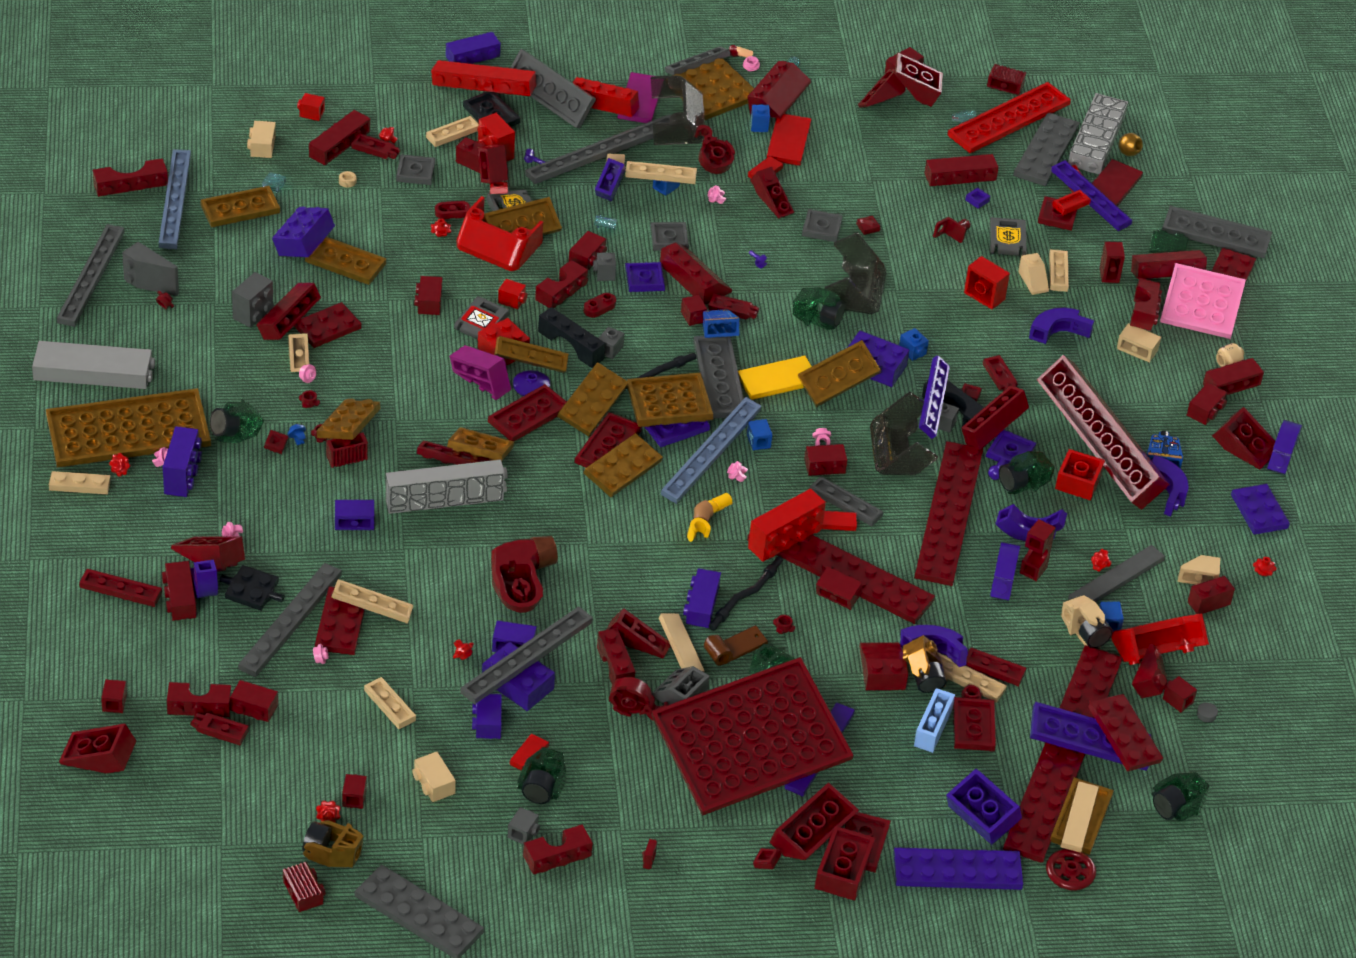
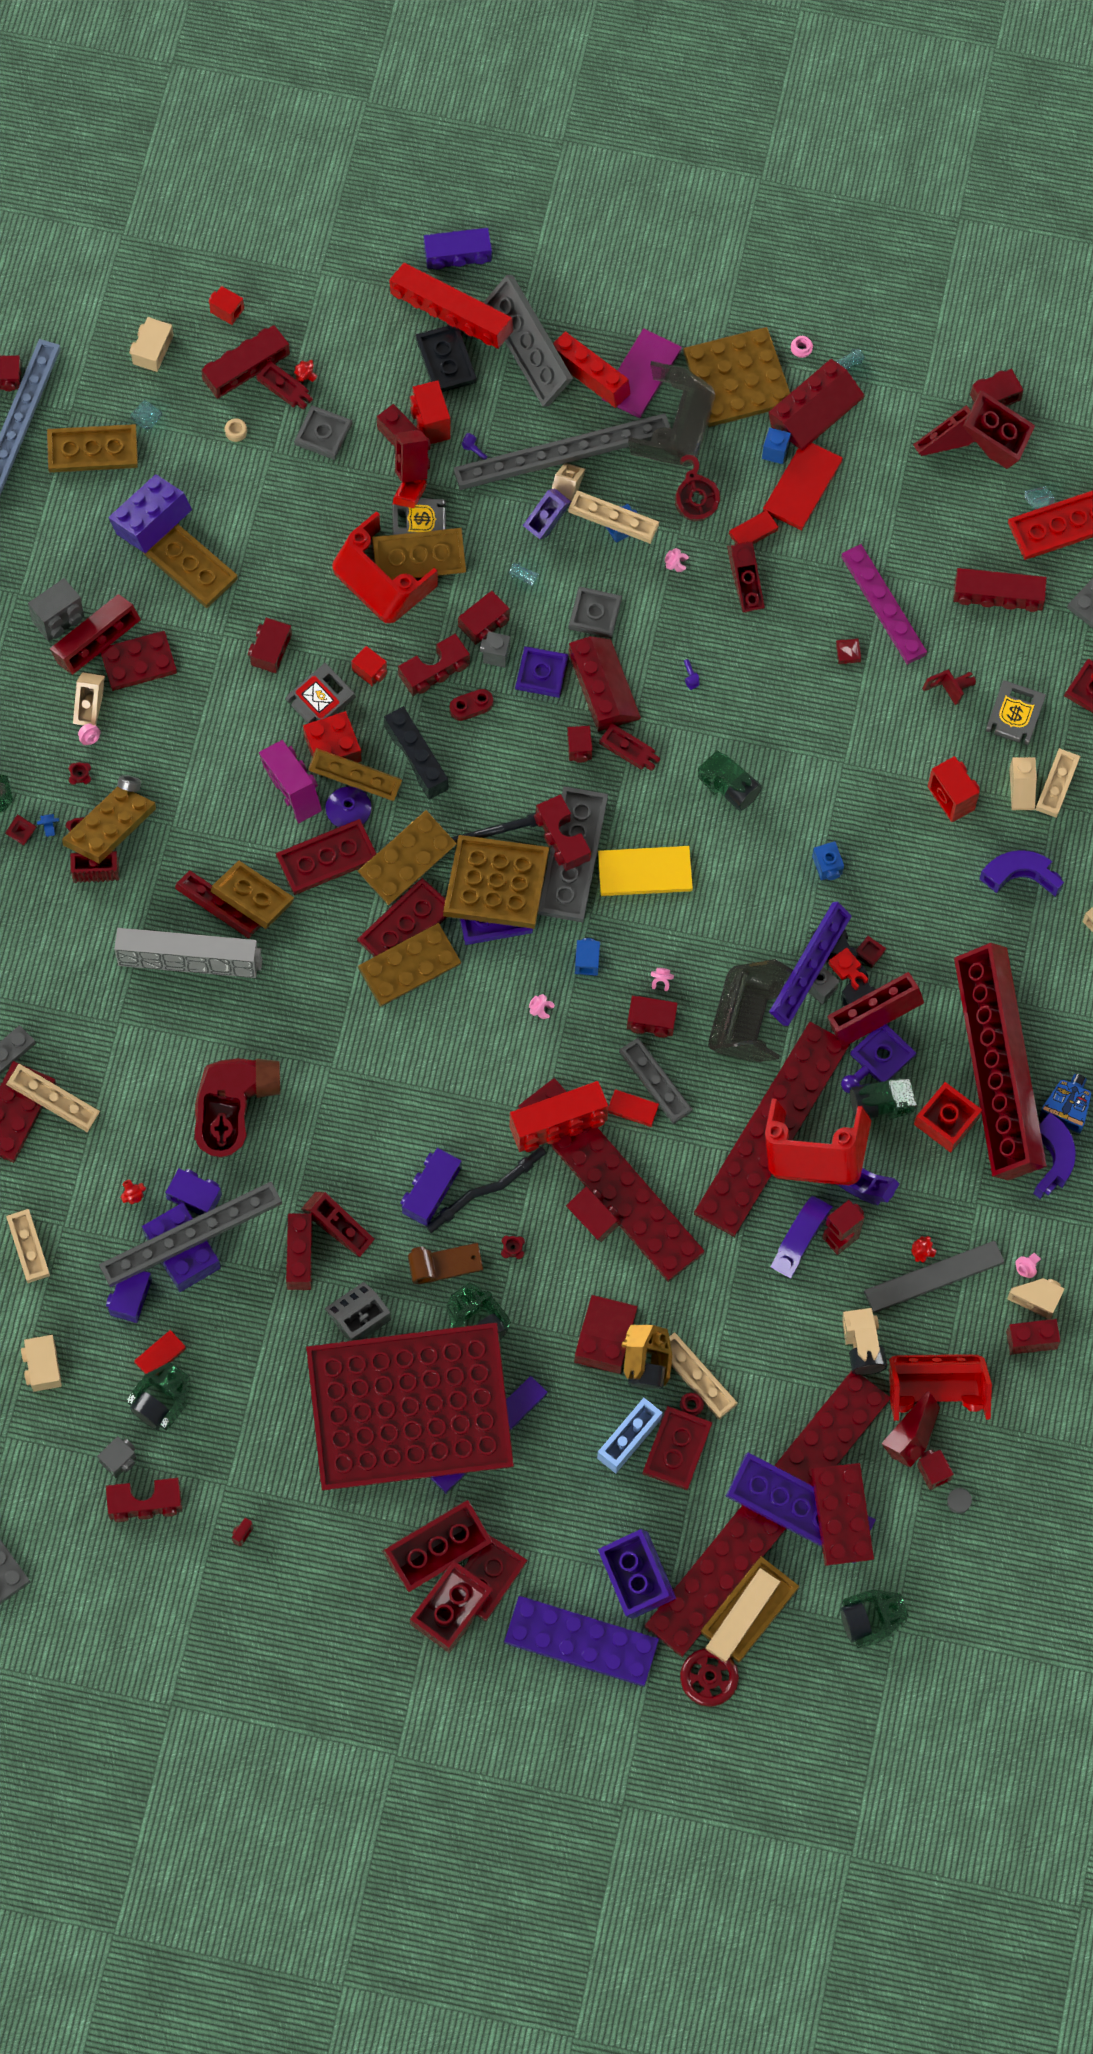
camera: 20 degrees right, 25 degrees up
(352, 395) = (129, 783): none -> flat silver tile
(354, 514) = (74, 963): dark purple brick -> none
(440, 228) = (320, 539): red plant -> none
(451, 209) = (344, 510): dark red plate -> none
(452, 131) = (387, 381): tan plate -> none
(613, 341) = (461, 770): dark grey brick -> none
(632, 696) = (296, 1313): dark red piece -> none
(680, 641) = (383, 1246): tan tile -> none
(697, 60) = (734, 326): dark grey tile -> none
(703, 512) = (478, 1059): yellow piece -> none
(710, 450) = (519, 969): sand blue plate -> none
(716, 368) = (569, 850): none -> dark red arch
(717, 323) = (598, 775): blue torso -> none
(736, 51) = (789, 320): arm -> none
(767, 858) = (371, 1572): dark red tile -> none
(822, 225) = (791, 638): dark grey tile -> none
(839, 373) = (713, 892): pearl gold plate -> none
(866, 278) = (806, 749): clear smoke windscreen -> none
(881, 195) = (884, 604): none -> magenta plate
(889, 357) = (771, 874): dark purple brick -> none
(947, 641) = (676, 1316): dark purple arch -> none
(961, 396) = (847, 966): none -> red plate
(977, 198) = (1003, 639): dark purple plate -> none
(994, 509) = (816, 1162): none -> red windscreen
(995, 666) = (733, 1372): dark red plate -> none
(999, 372) = (917, 932): dark red hinge -> none
(1113, 614) = (898, 1335): blue brick -> none
(1183, 554) = (1027, 1266): none -> bright pink plate

